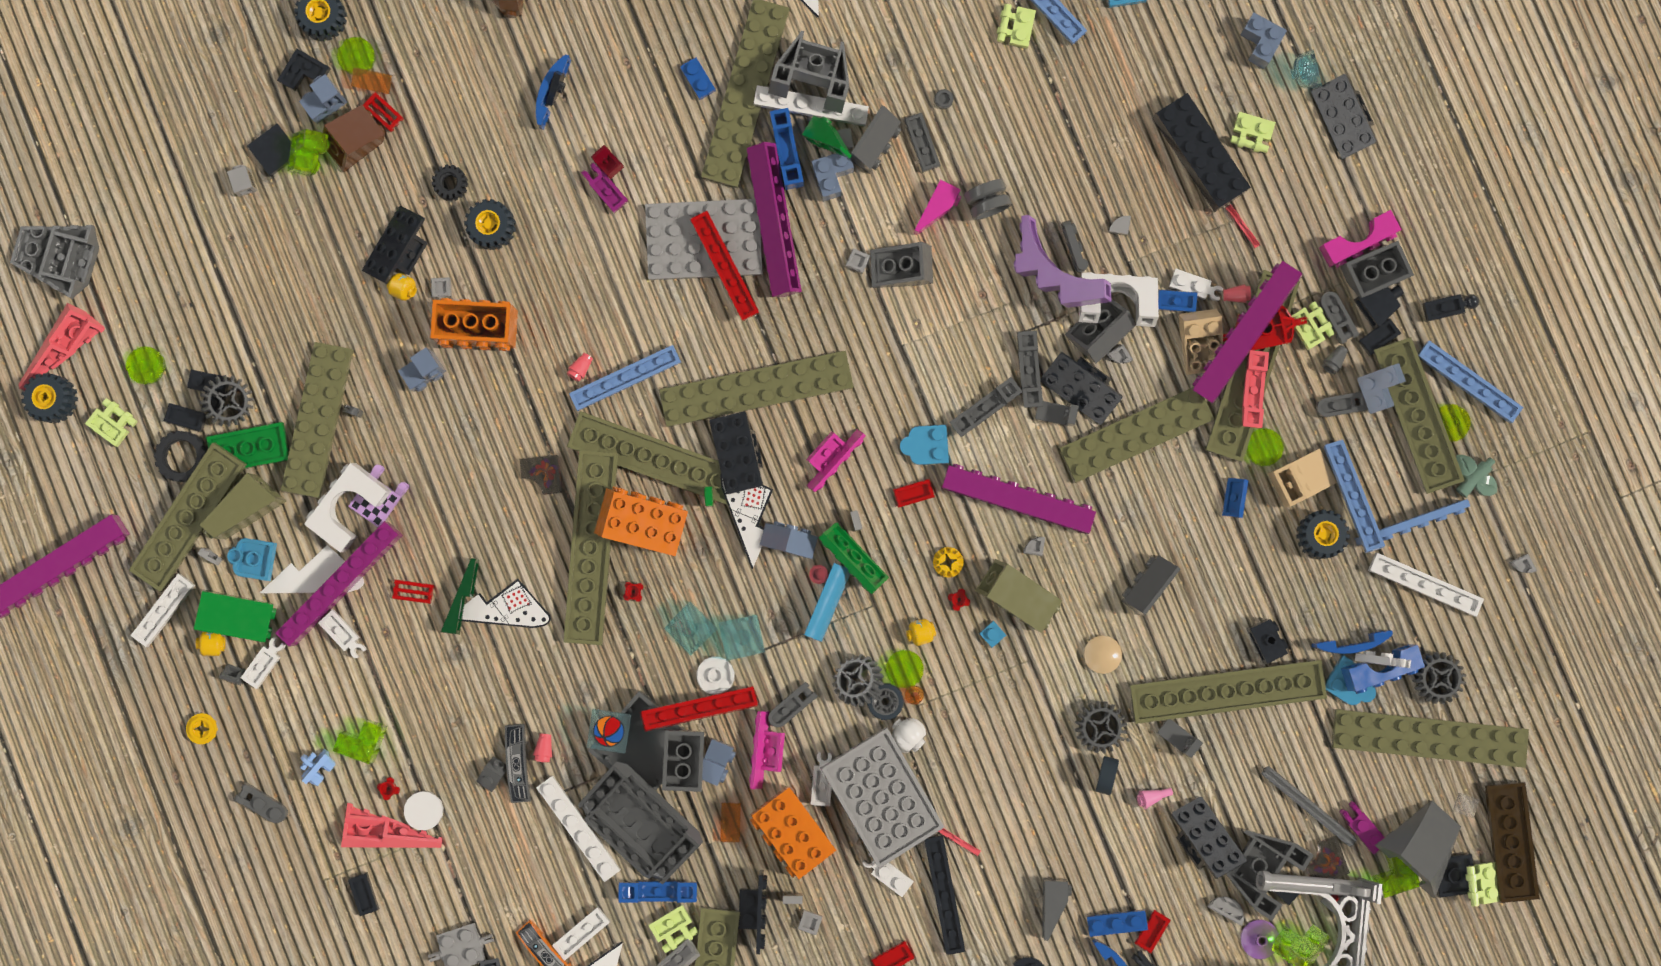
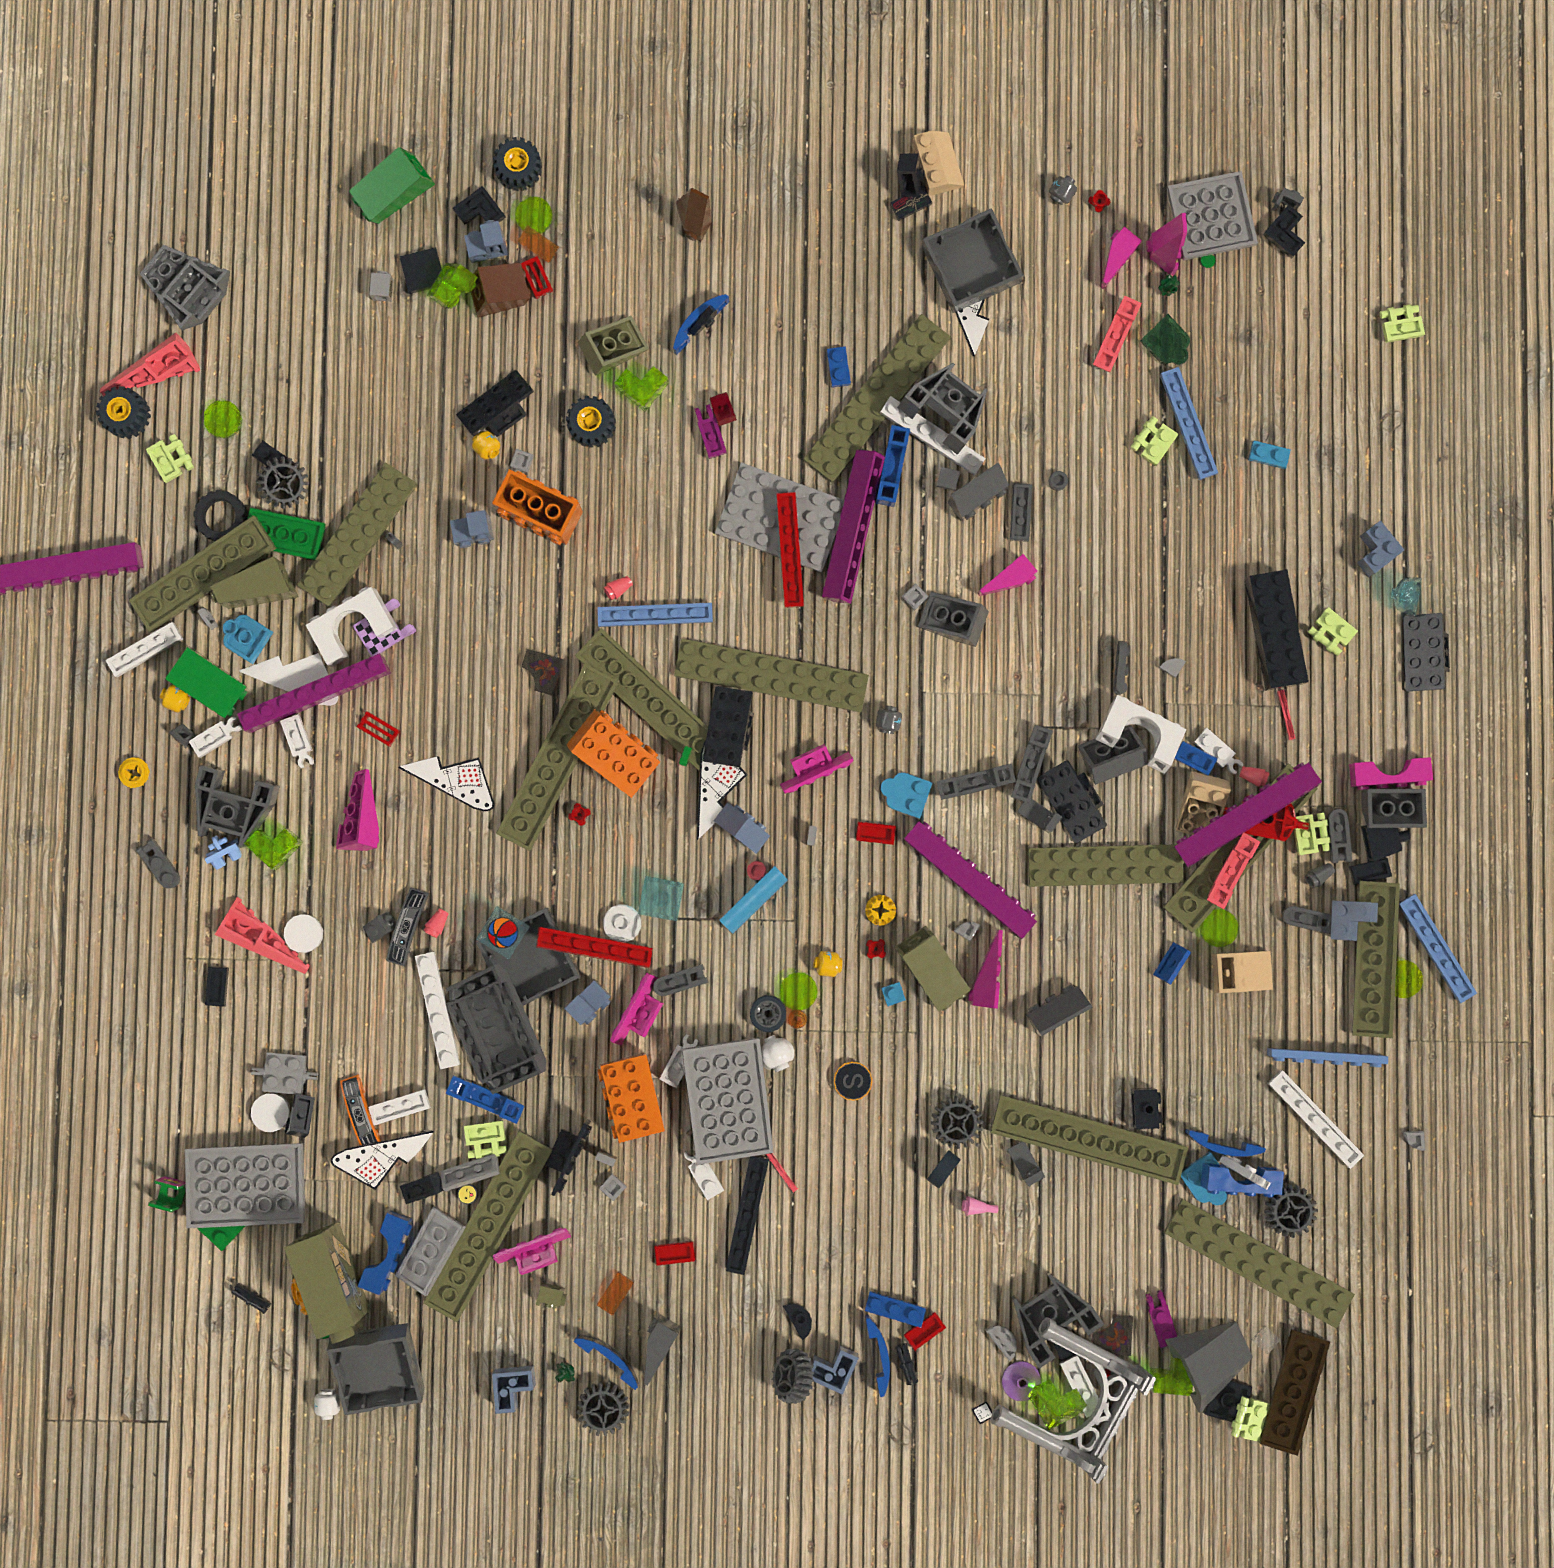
camera: 25 degrees right, 0 degrees up
(185, 417) = (238, 481): black tile -> none
(211, 83) = (391, 185): none -> green slope
(305, 726) = (231, 811): none -> dark grey wedge
(382, 787) = (276, 904): red plate -> none
(434, 687) = (360, 825): none -> dark pink wedge
(442, 174) = (565, 357): black tyre -> none
(466, 589) = (427, 747): dark green slope -> none
(480, 145) = (612, 345): none -> olive slope
(524, 177) = (642, 391): none -> clear neon green brick
(683, 760) = (559, 988): dark grey slope -> none
(691, 628) = (618, 870): clear light blue slope -> none
(730, 822) = (579, 1064): clear orange tile -> none
(824, 135) = (932, 467): green slope -> none
(827, 171) = (924, 501): sand blue brick -> none
(853, 557) = (794, 869): green plate -> none
(862, 664) = (737, 995): dark grey gear -> none
(881, 384) = (888, 720): none -> dark grey head
(988, 199) = (1059, 590): dark grey wheel -> none
(989, 730) = (852, 1081): none -> black tile
(1034, 261) = (1078, 666): medium lavender arch -> none
(1054, 902) = (846, 1264): dark grey slope -> none
(1074, 591) = (986, 987): none -> dark pink wedge
(1102, 654) = (987, 1056): tan dish -> none
(1119, 355) = (1120, 786): light grey tile -> none
(1206, 839) = (1011, 1267): black bracket -> none
(1309, 806) = (1119, 1277): dark grey axle -> none
(1312, 915) = (1079, 1379): none -> white plate
(1323, 534) = (1239, 1032): black wheel -> none
(1354, 496) = (1283, 1009): medium blue plate -> none
(1449, 306) = (1447, 870): black plate -> none
(1476, 476) = (1405, 1039): sand green plant -> none

